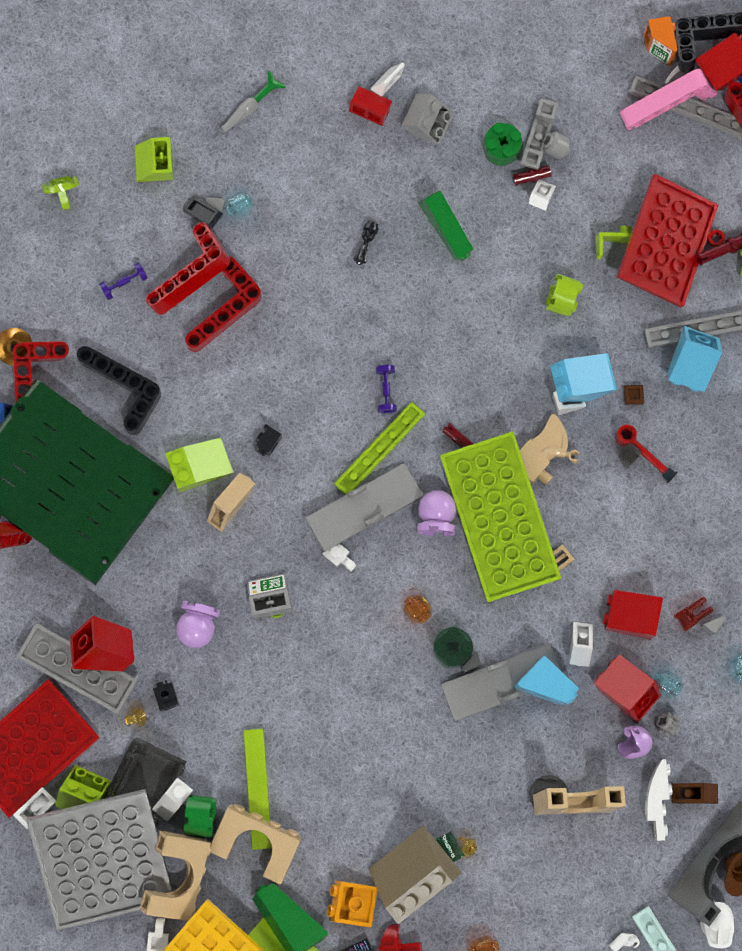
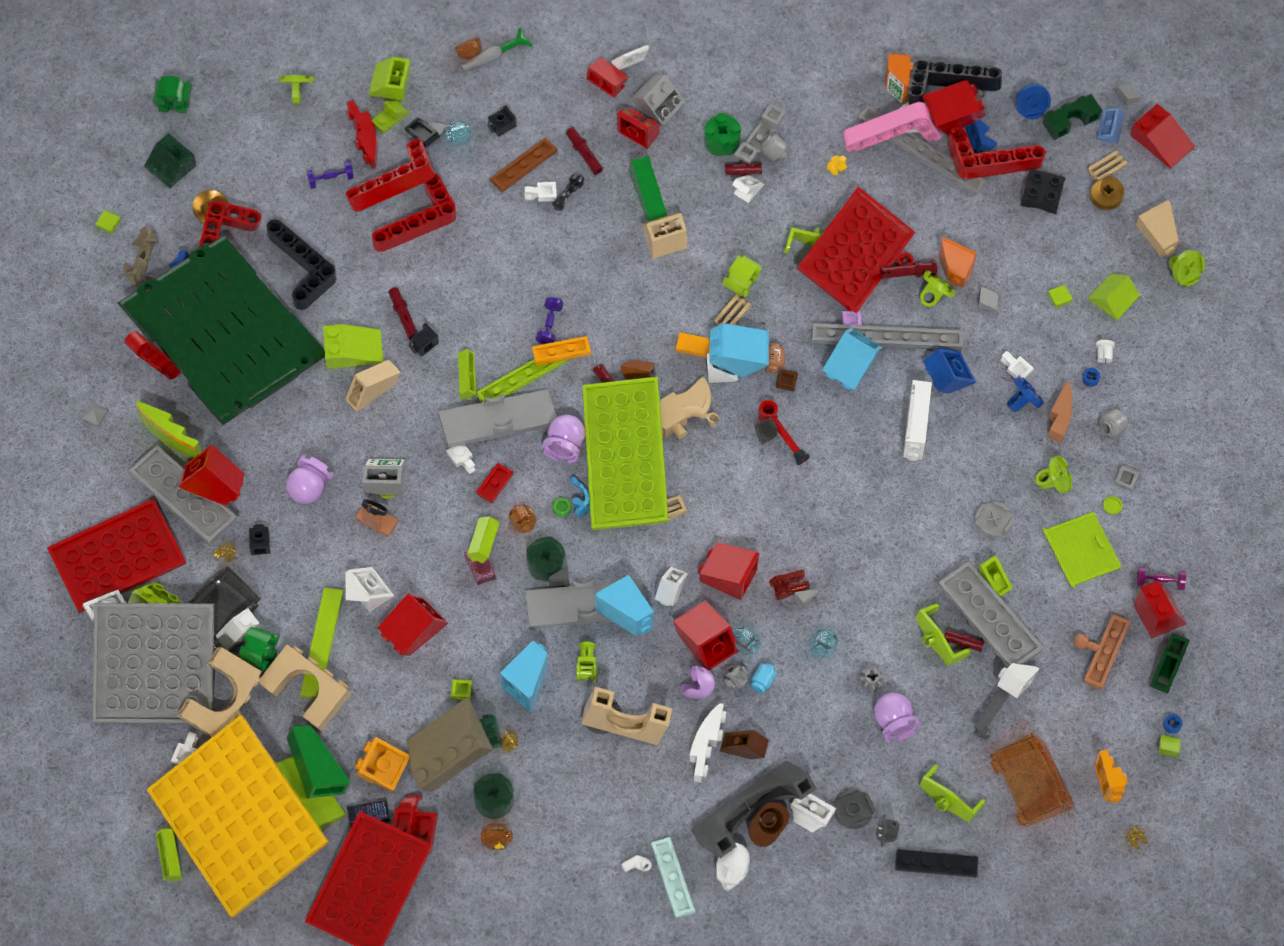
camera: 15 degrees right, 15 degrees down
(40, 603) = (164, 428): none -> lime slope
(149, 232) = (365, 133): none -> red slope
(164, 201) = (390, 116): none -> lime slope
(224, 107) = (469, 49): none -> clear orange hair
(234, 409) = (400, 307): none -> dark red pin
(274, 643) = (375, 518): none -> nougat piece
(279, 187) = (501, 121): none -> black brick
(286, 721) = (367, 587): none -> white slope
(313, 222) = (523, 164): none -> dark orange tile
(320, 466) = (467, 378): none -> lime piece
(341, 247) = (544, 191): none -> white plate
(341, 750) = (411, 624): none -> red slope
(364, 188) = (579, 145): none -> dark red pin
(379, 576) = (494, 483): none -> red plate
(386, 642) = (483, 539): none -> lime piece
(389, 669) = (481, 571): none -> clear pink plate
(406, 419) = (561, 350): none -> light orange tile
(407, 803) = (461, 689): none -> lime tile
(416, 155) = (637, 127): none -> red slope
(451, 585) = (561, 507): none -> bright green tile
(469, 777) = (525, 675): none -> medium azure slope
(472, 581) = (581, 507): none -> dark azure piece
(476, 268) = (665, 235): none -> tan slope
(481, 912) = (495, 785): none -> clear green brick
(487, 422) = (637, 369): none -> dark orange brick
(521, 747) = (586, 665): none -> lime connector
(534, 379) = (693, 345): none -> light orange tile
(568, 321) = (740, 302): none -> tan tile
(620, 374) = (776, 358): none -> nougat head
(622, 148) = (837, 164): none -> yellow plant
(679, 313) = (851, 318): none -> lavender tile
(694, 719) = (763, 678): none -> medium azure brick

